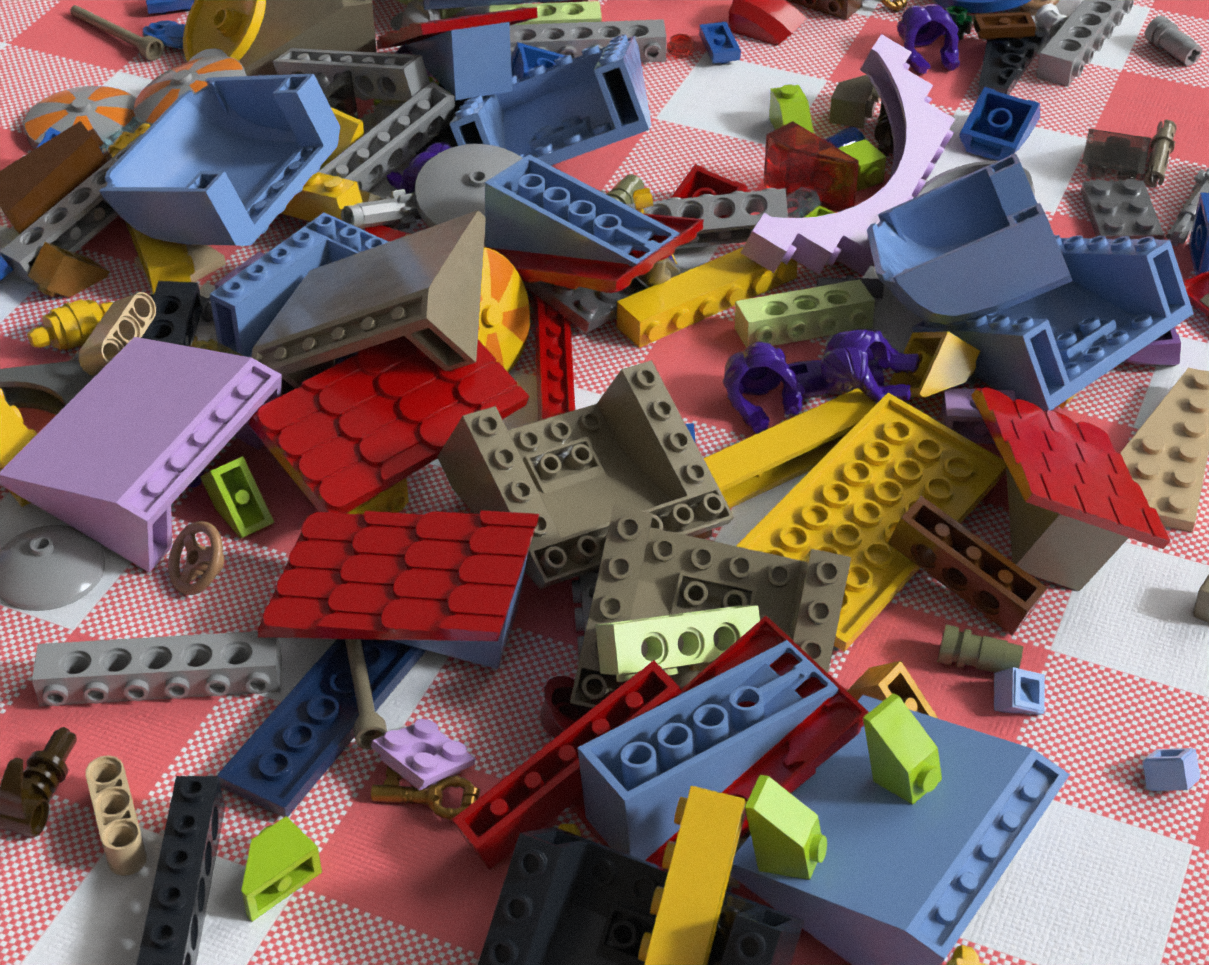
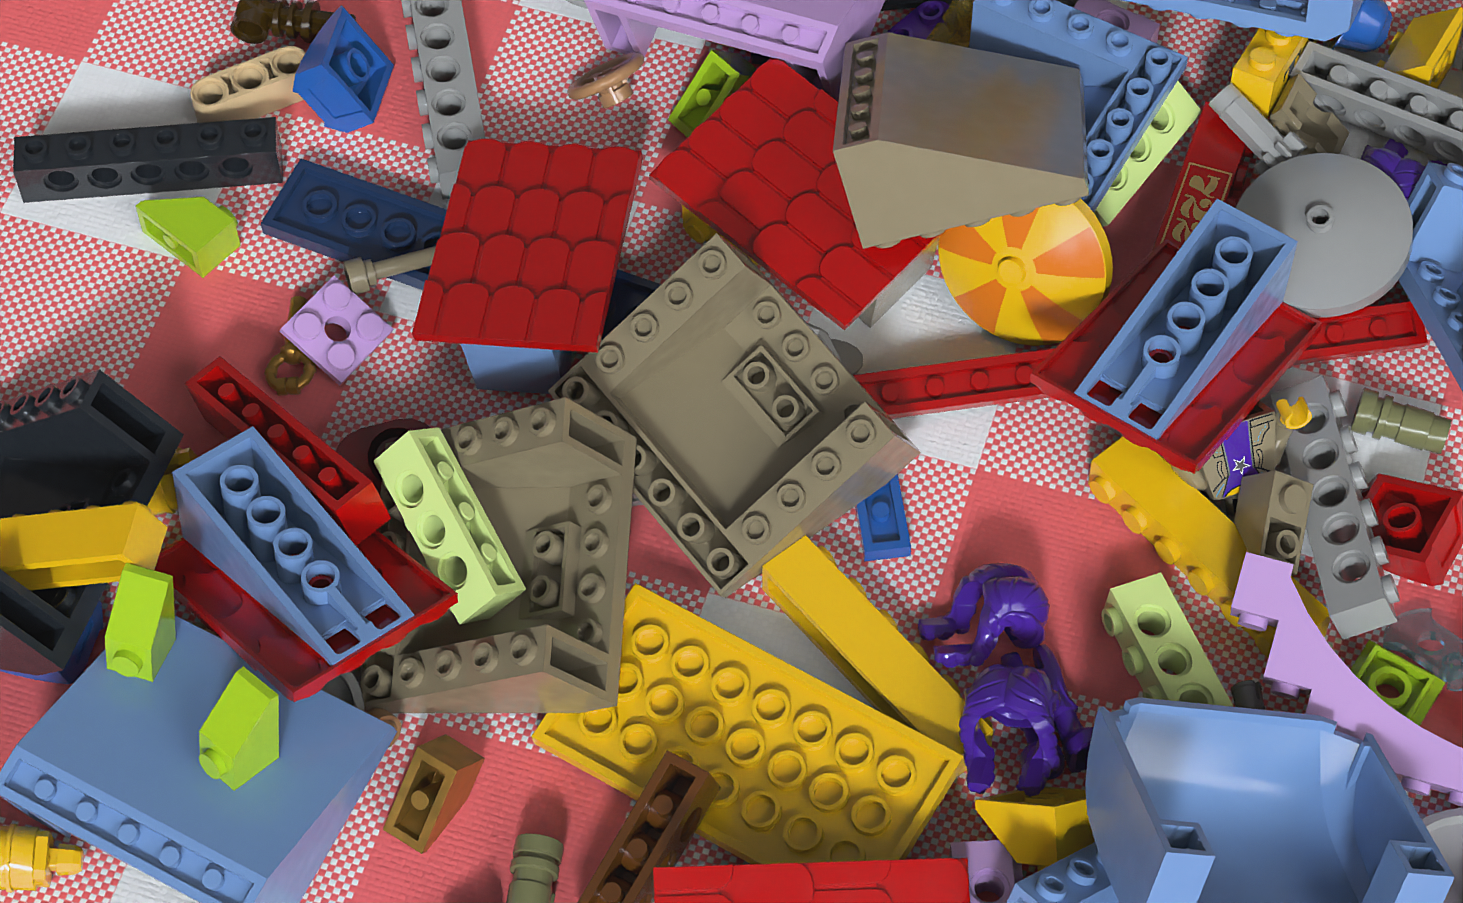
camera: 85 degrees right, 15 degrees up
(130, 735) = (343, 74): none -> blue slope
(710, 242) = (1273, 515): none -> dark tan slope

